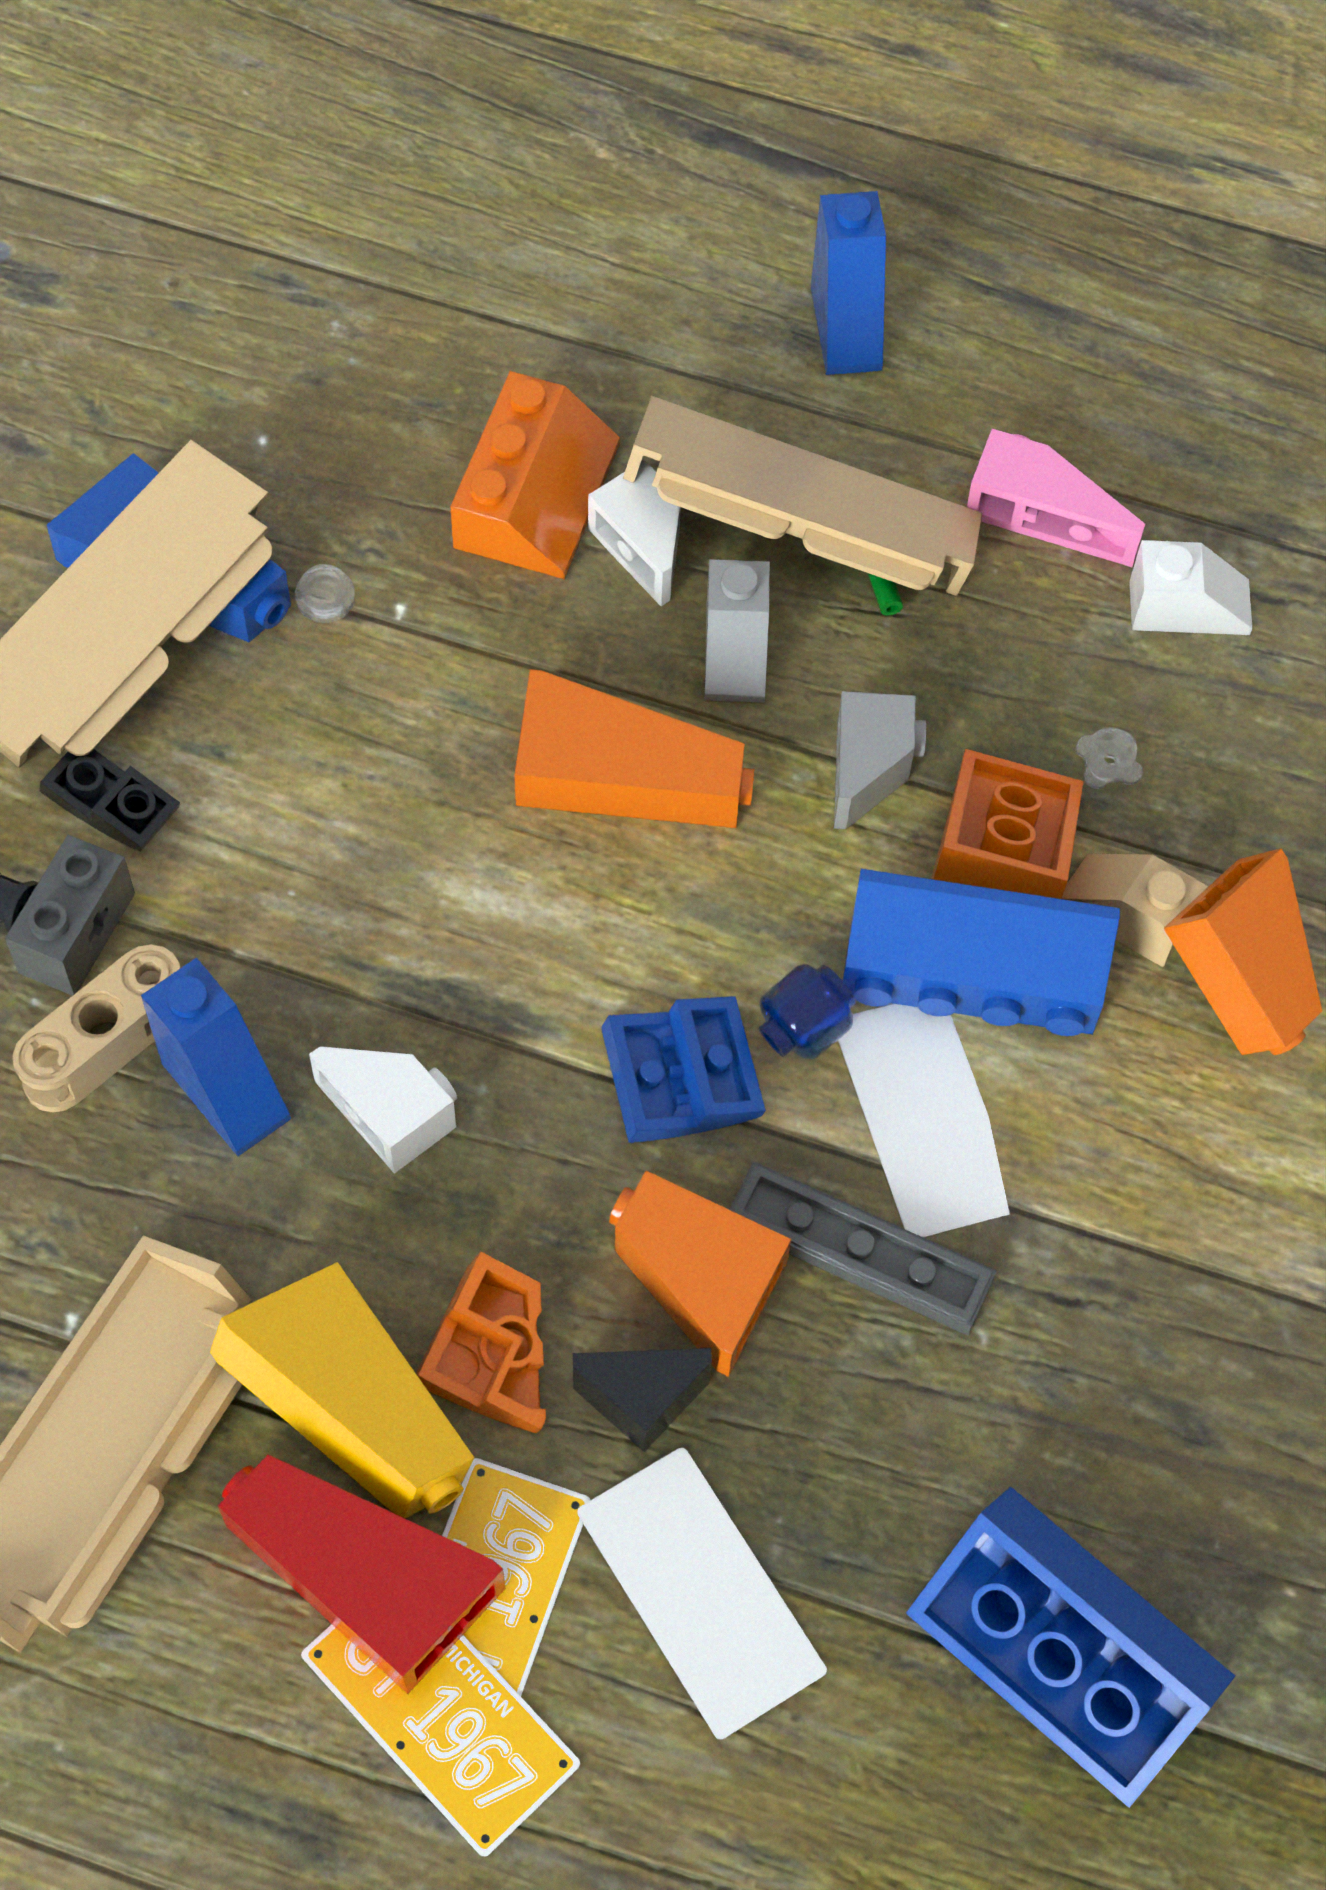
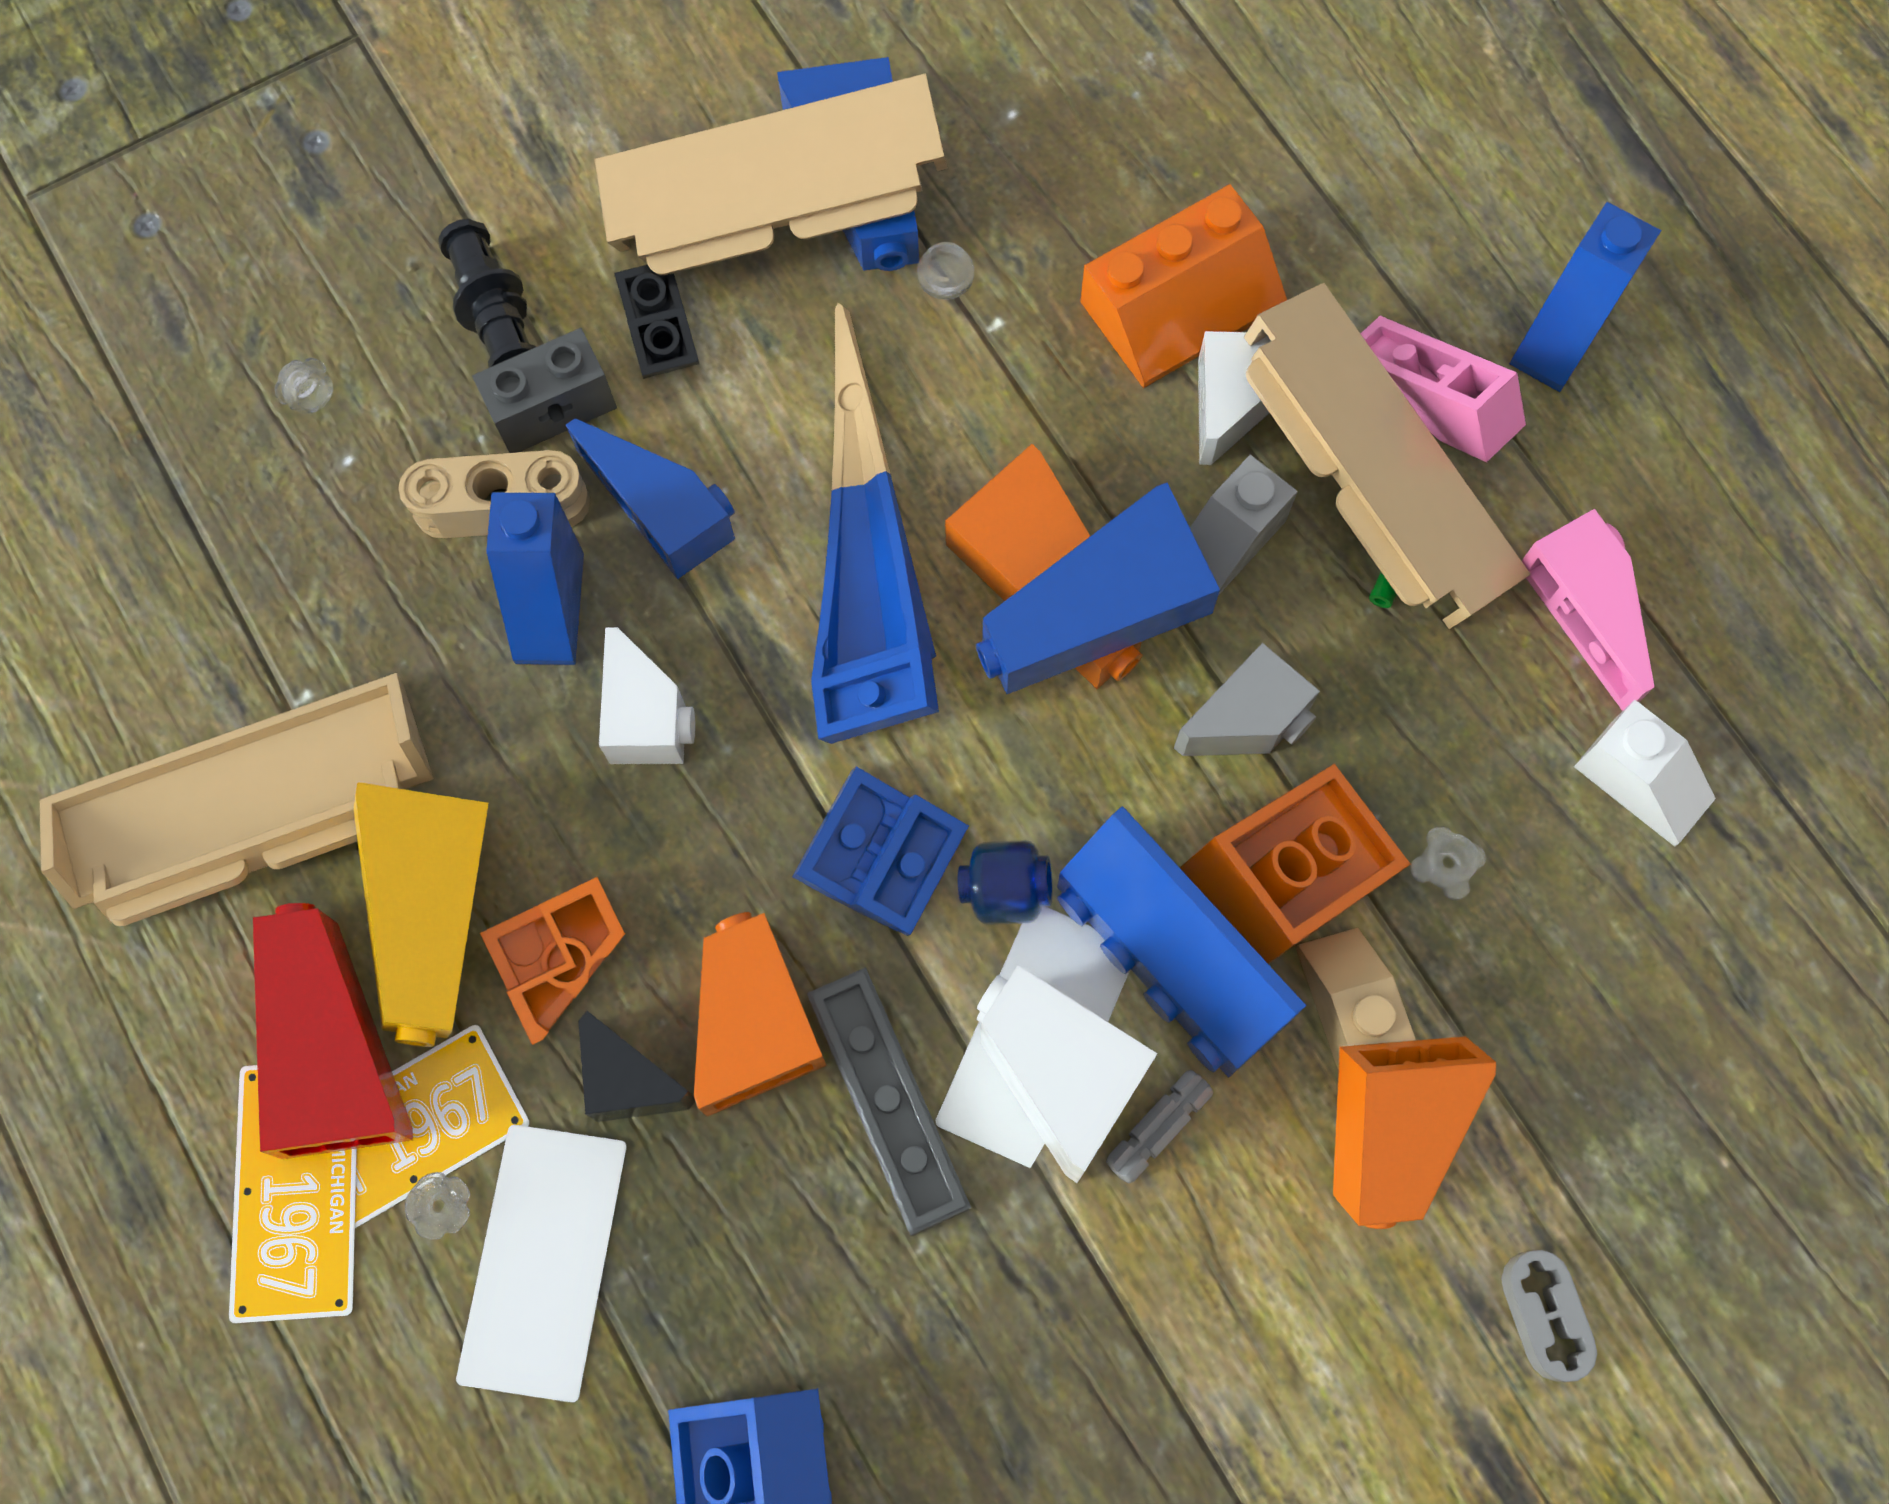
camera: 45 degrees right, 10 degrees up
(248, 931) = (659, 496): none -> blue slope
(525, 904) = (873, 625): none -> blue plate
(582, 1596) = (420, 1205): none -> clear plate
(701, 731) = (1103, 596): none -> blue slope
(821, 413) = (1452, 391): none -> bright pink slope
(977, 1106) = (1060, 1064): none -> white slope
(1078, 1104) = (1159, 1126): none -> light grey axle

